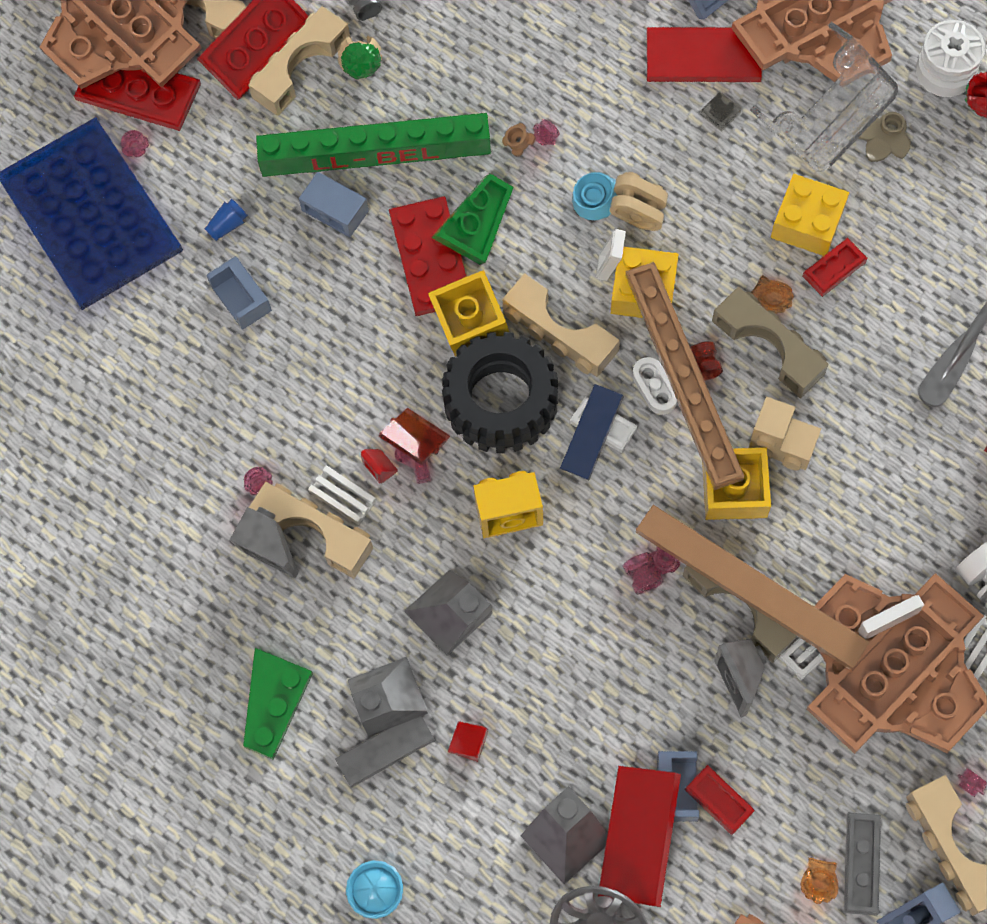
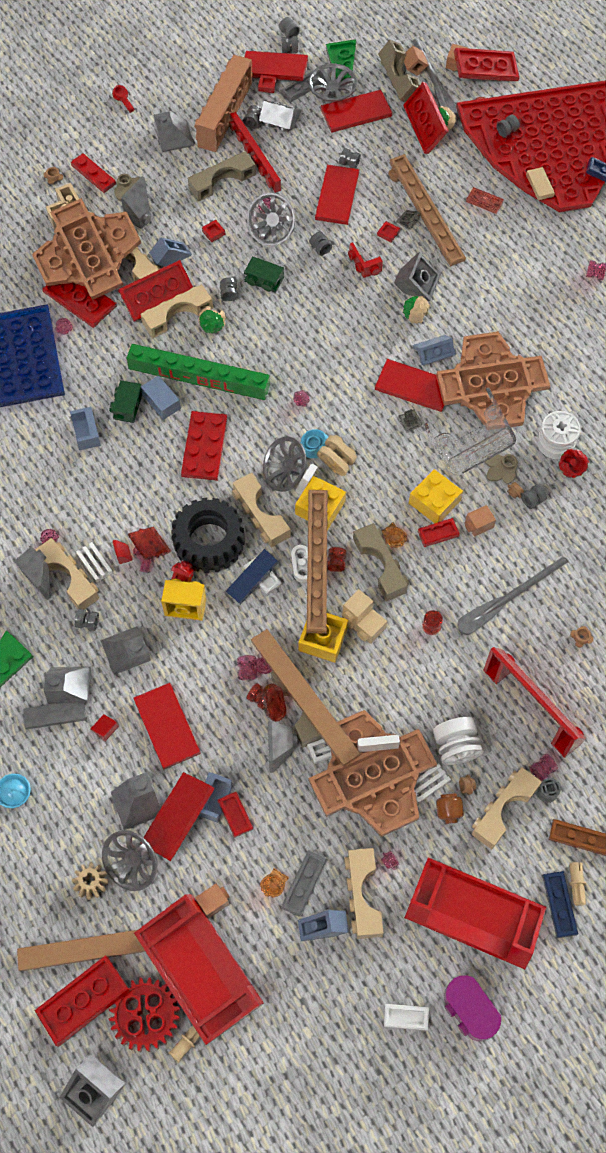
camera: 15 degrees right, 5 degrees down
(226, 219) = (96, 385): blue cone -> none
(284, 228) = (126, 401): none -> dark green brick
(378, 586) = (86, 619): none -> dark grey wheel
(468, 310) = (209, 481): yellow brick -> none
(476, 220) = (238, 434): green wing -> none
(487, 463) = (183, 571): none -> red bracket
(513, 134) = (283, 396): medium nougat plate -> none
(560, 704) = (166, 726): none -> red tile
(573, 243) = (289, 464): none -> flat silver wheel
(687, 611) = (255, 695): none -> clear red wheel
(708, 611) = (274, 702): none -> clear red tile
(882, 413) = (431, 626): none -> clear red wheel
(888, 228) = (480, 520): none -> nougat brick
(919, 164) = (515, 490): none -> medium nougat plate
(951, 162) = (535, 495): none -> dark grey wheel

